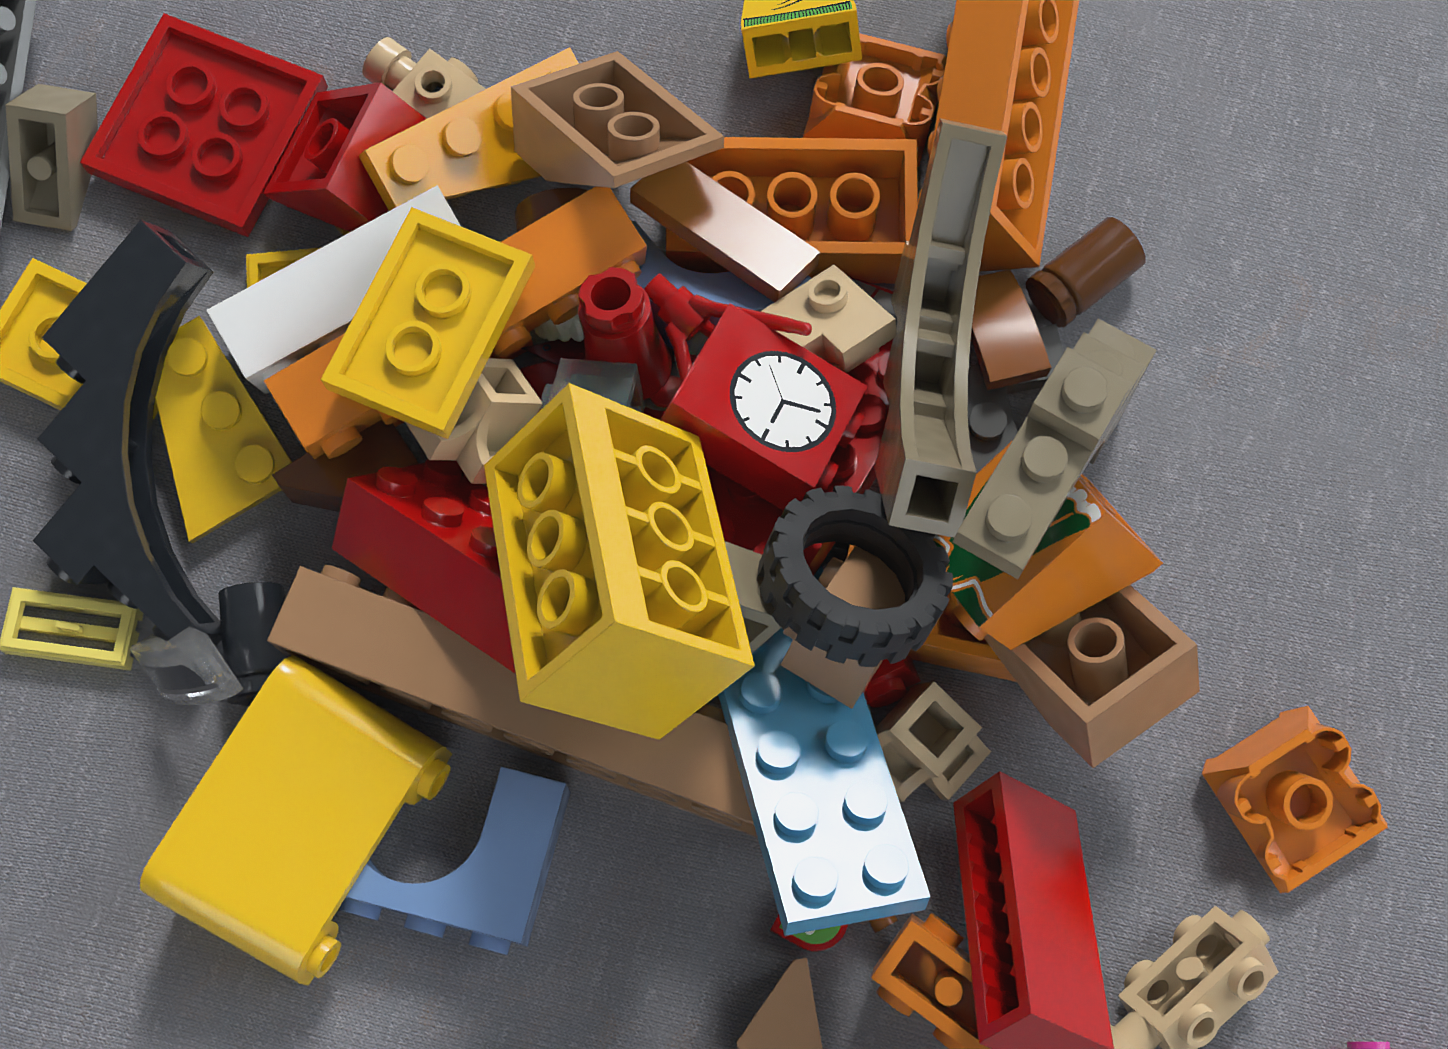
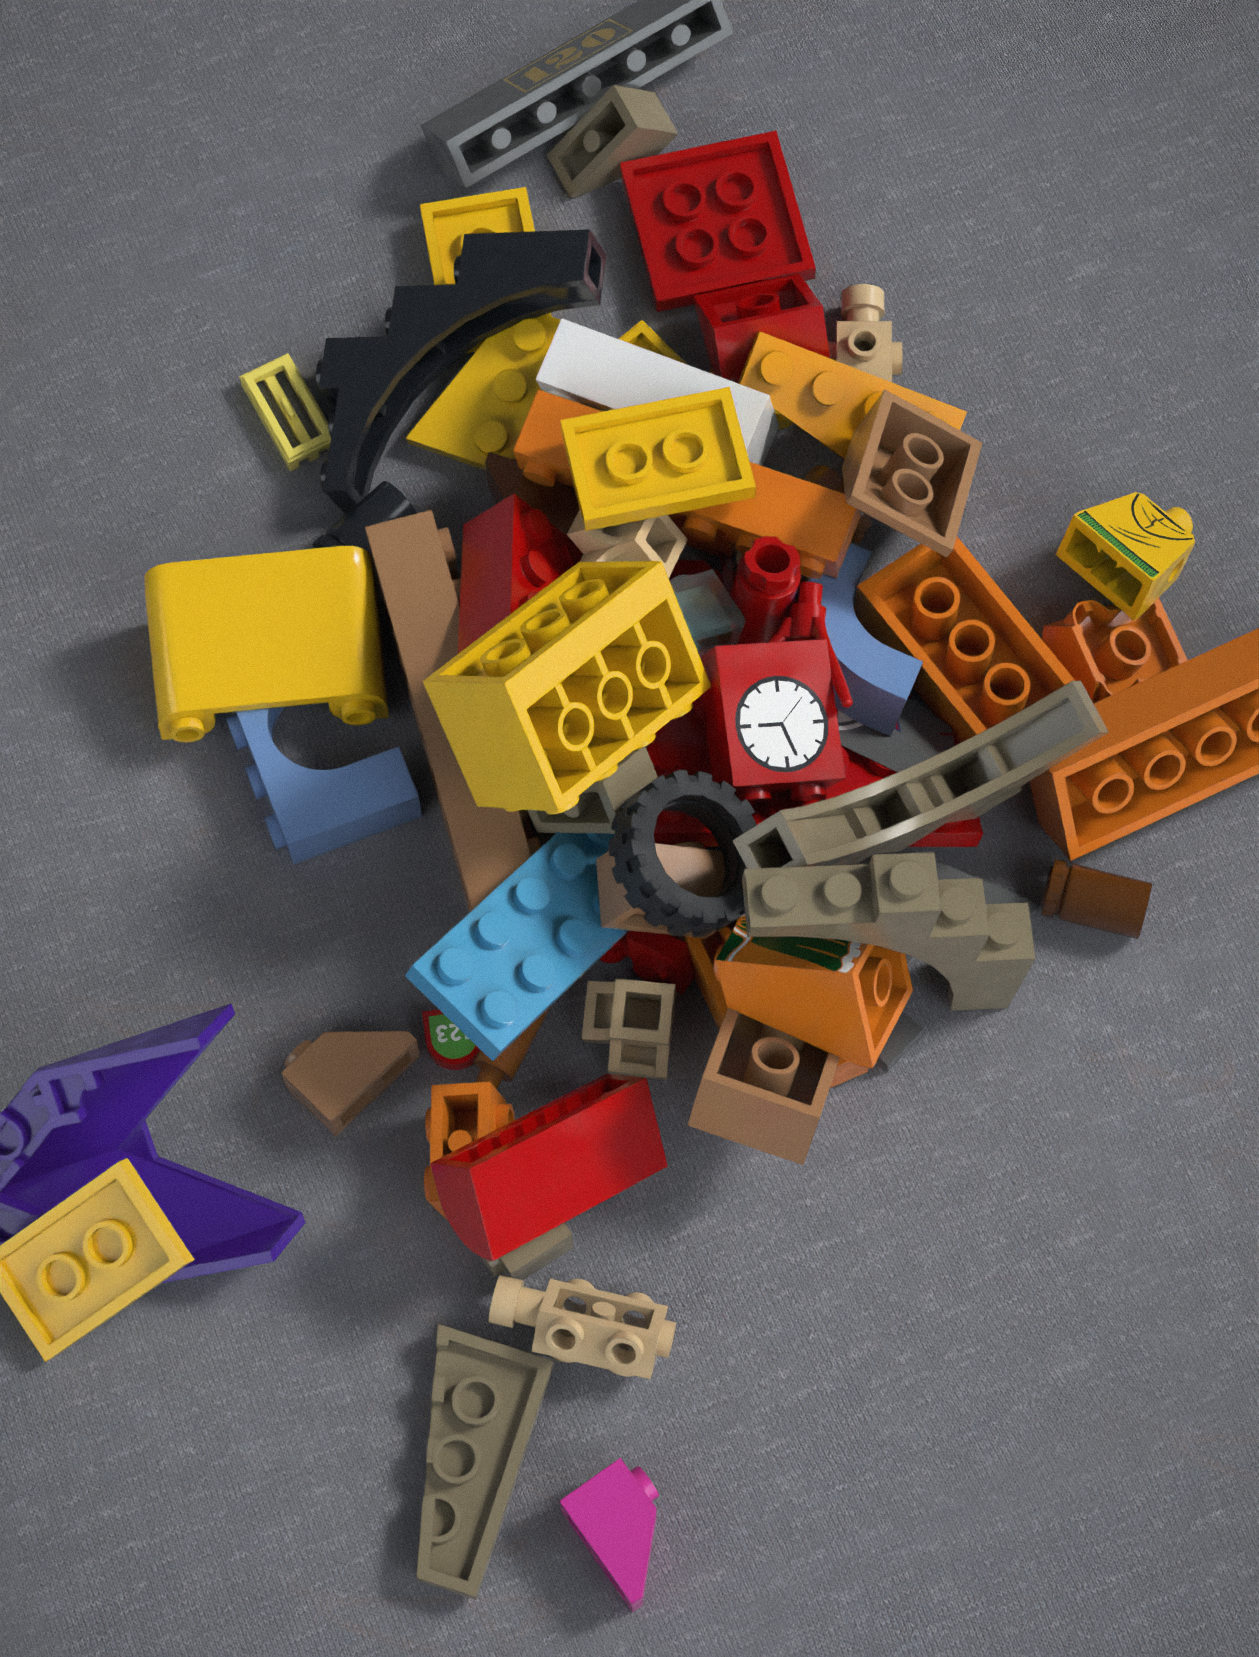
camera: 55 degrees right, 5 degrees down
(186, 668) = (312, 497): clear slope -> none
(726, 229) = (899, 610): tile -> none
(843, 319) = (879, 726): tan brick -> none
(1006, 333) = (1005, 858): dark orange slope -> none
(1295, 797) = (796, 1319): orange slope -> none

